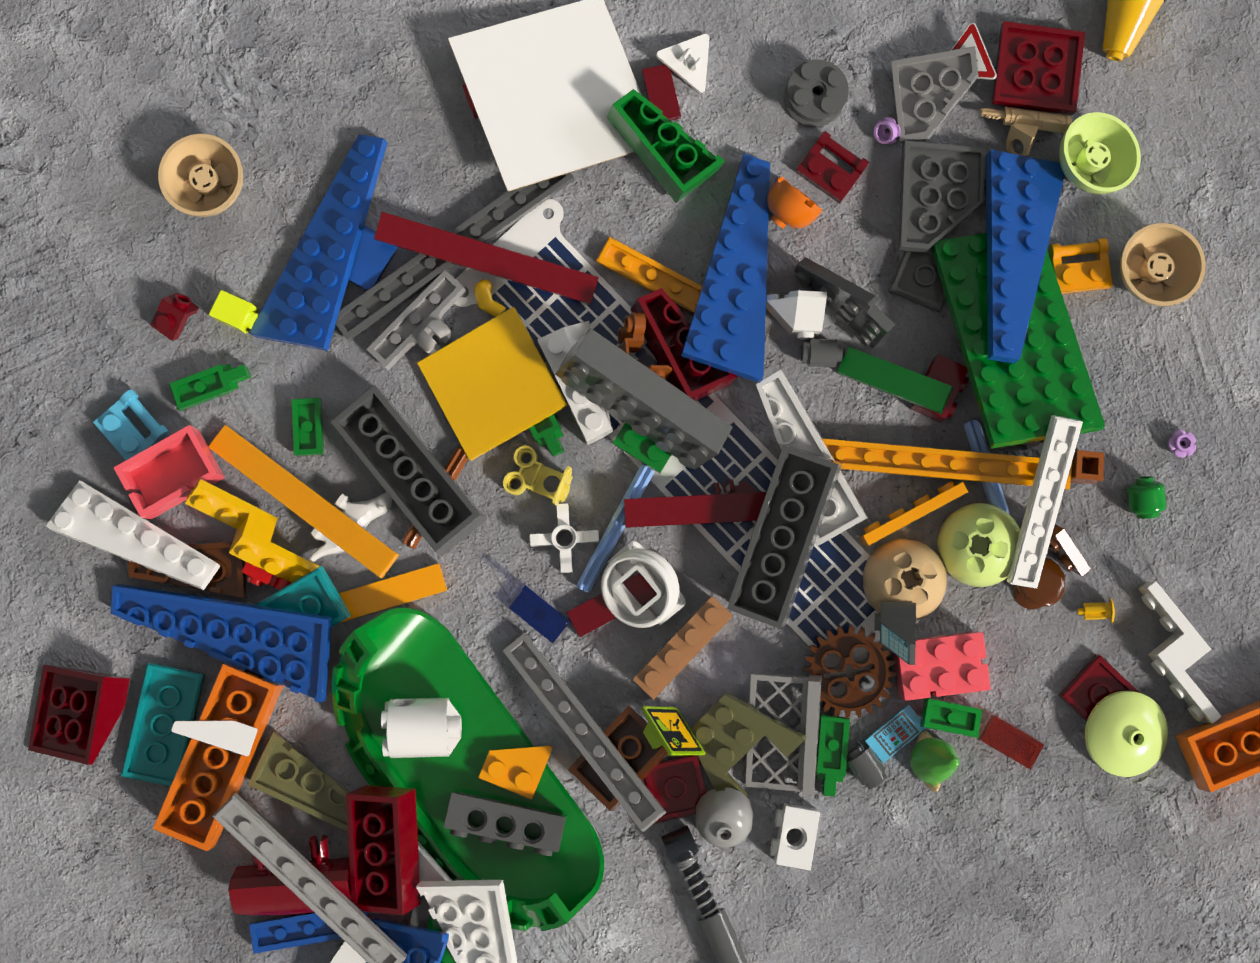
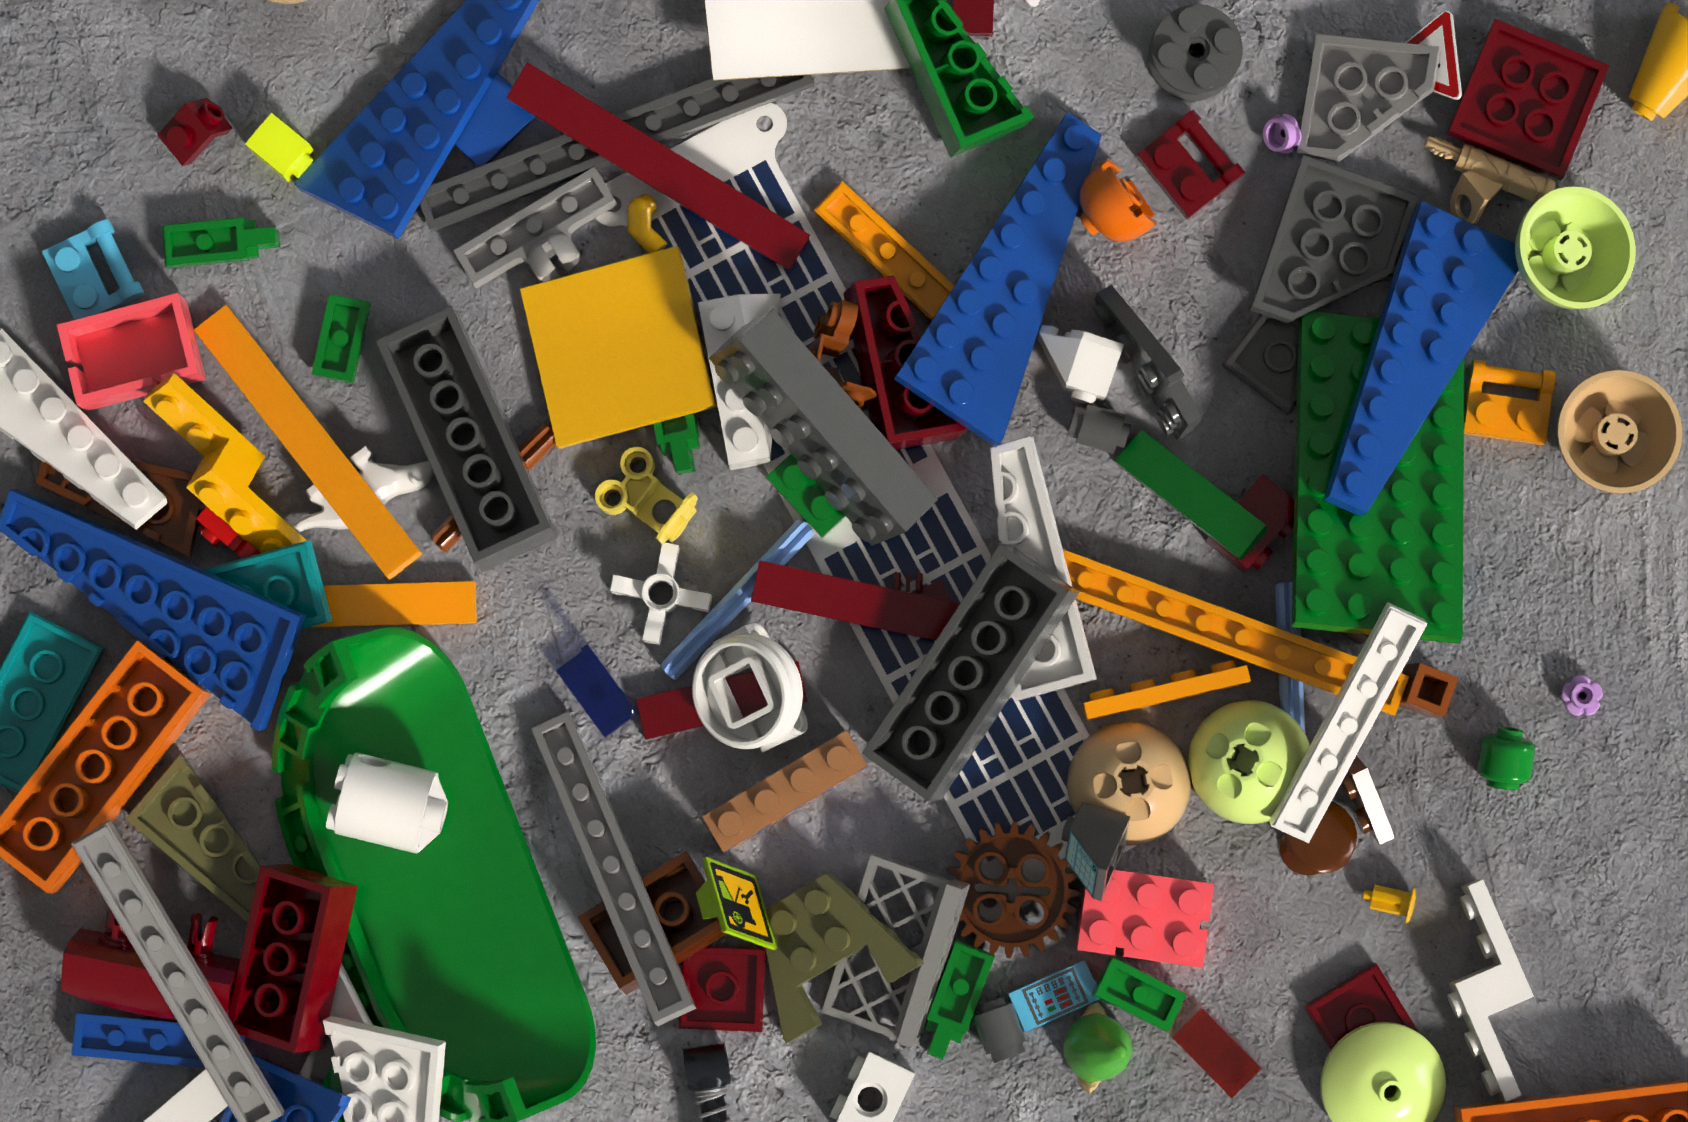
camera: 20 degrees right, 0 degrees up
(223, 734) = (111, 737): white sticker -> none
(463, 804) = (417, 928): dark grey brick -> none
(516, 768) = (506, 899): light orange wing -> none
(724, 817) = (778, 1045): light grey cylinder -> none

